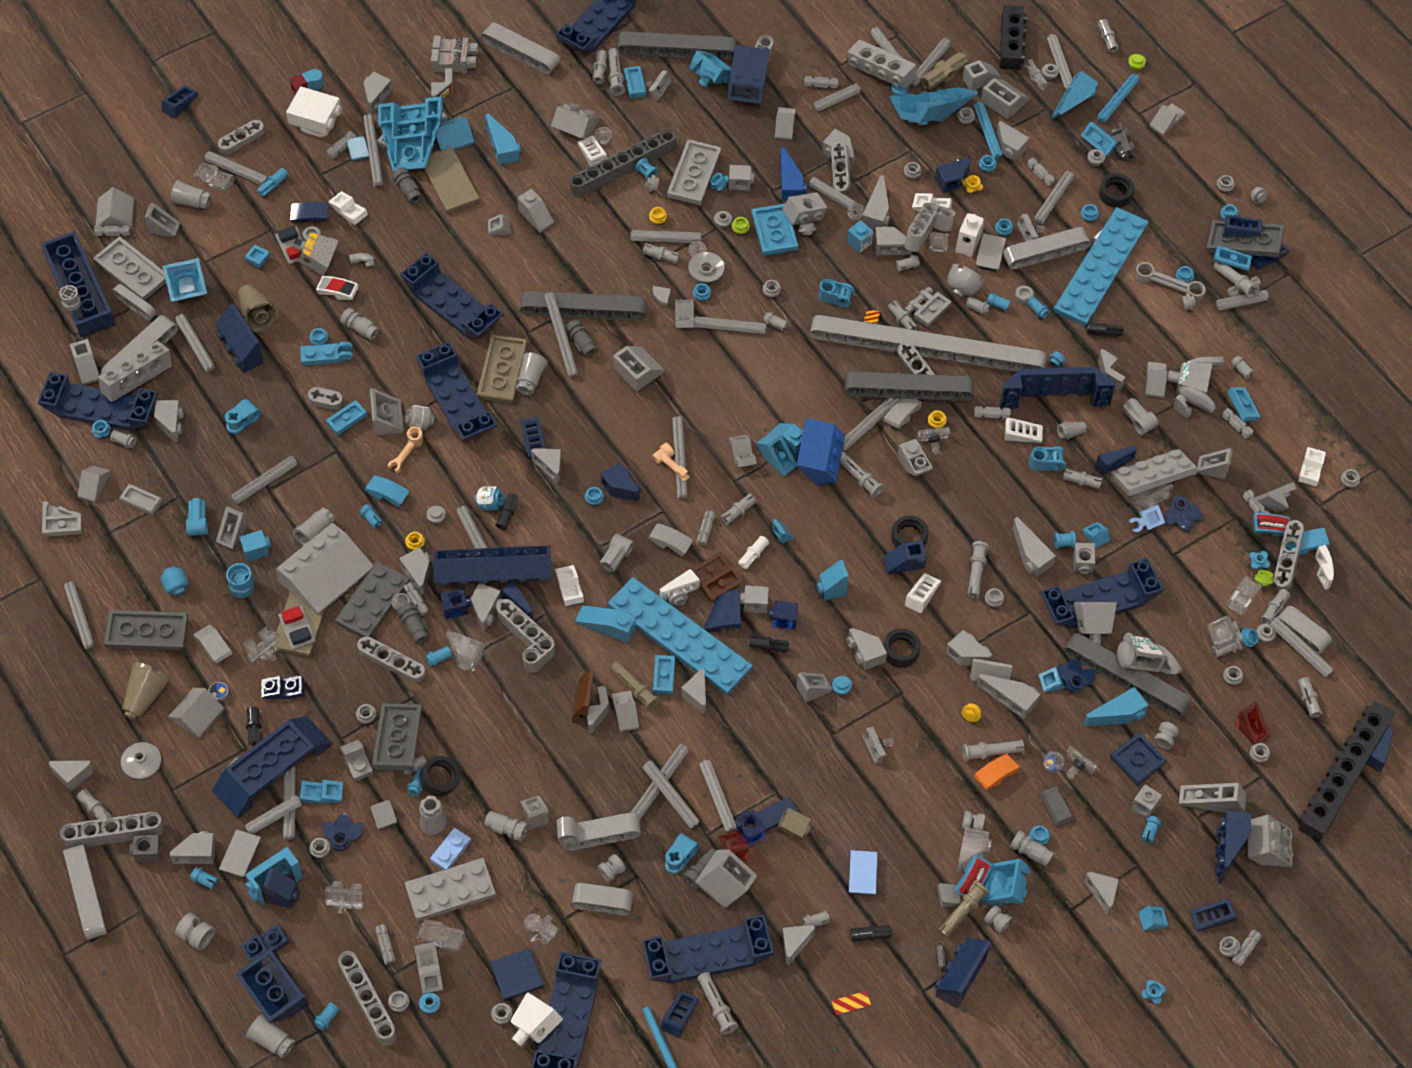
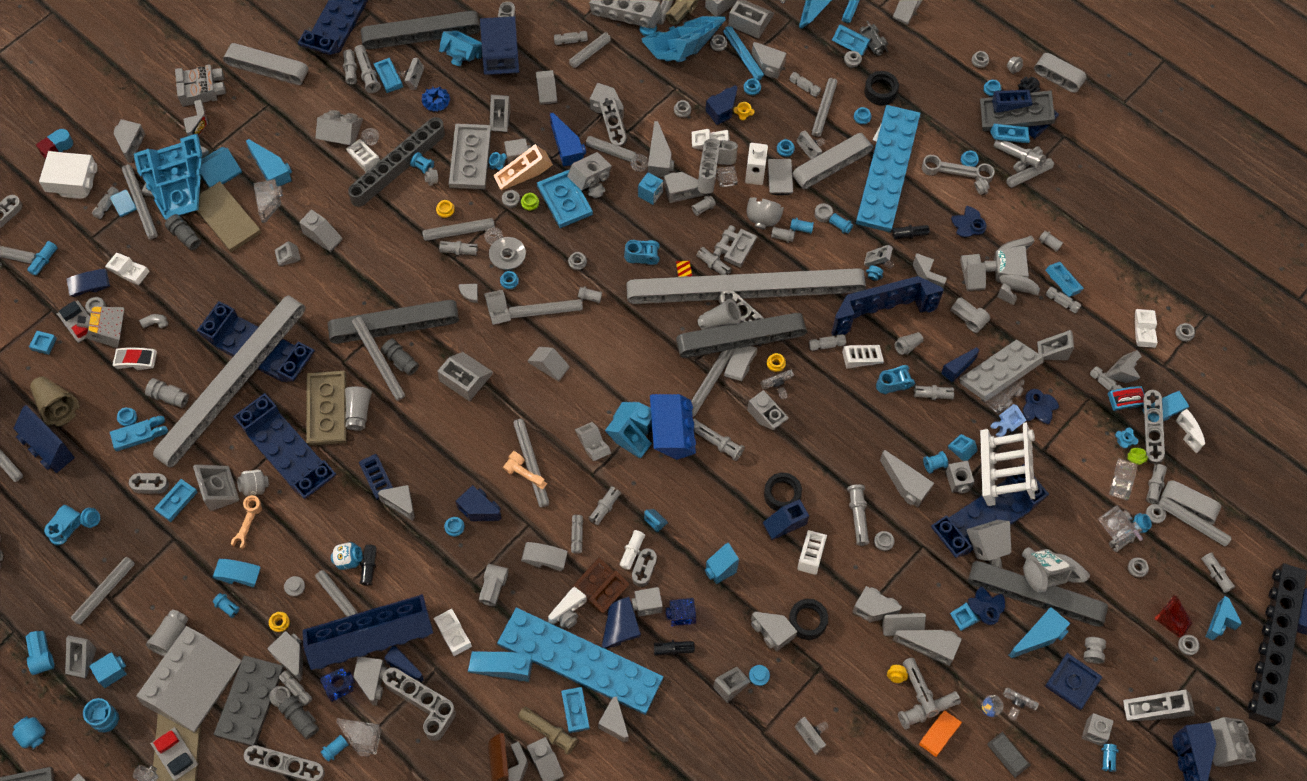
camera: 15 degrees left, 5 degrees up
(266, 415) = (89, 517): none -> dark azure plate
(419, 324) = (228, 381): none -> light grey beam
(493, 171) = (267, 198): none -> clear slope
(677, 118) = (440, 103): none -> blue gear
(720, 373) = (549, 362): none -> light grey slope
(733, 137) = (499, 113): none -> light grey slope
(743, 193) = (523, 168): none -> light nougat slope
(763, 572) = (639, 566): none -> light grey beam
(897, 363) = (722, 315): none -> light grey plant
(992, 744) = (930, 706): none -> light grey pin
(1067, 345) = (879, 256): none -> light grey piece
(1117, 545) = (989, 458): none -> white fence
(1164, 334) = (967, 222): none -> dark blue plate
(1267, 216) = (1030, 84): none -> black gear
(1302, 212) = (1060, 72): none -> light grey beam
(1302, 736) = (1224, 616): none -> dark azure slope

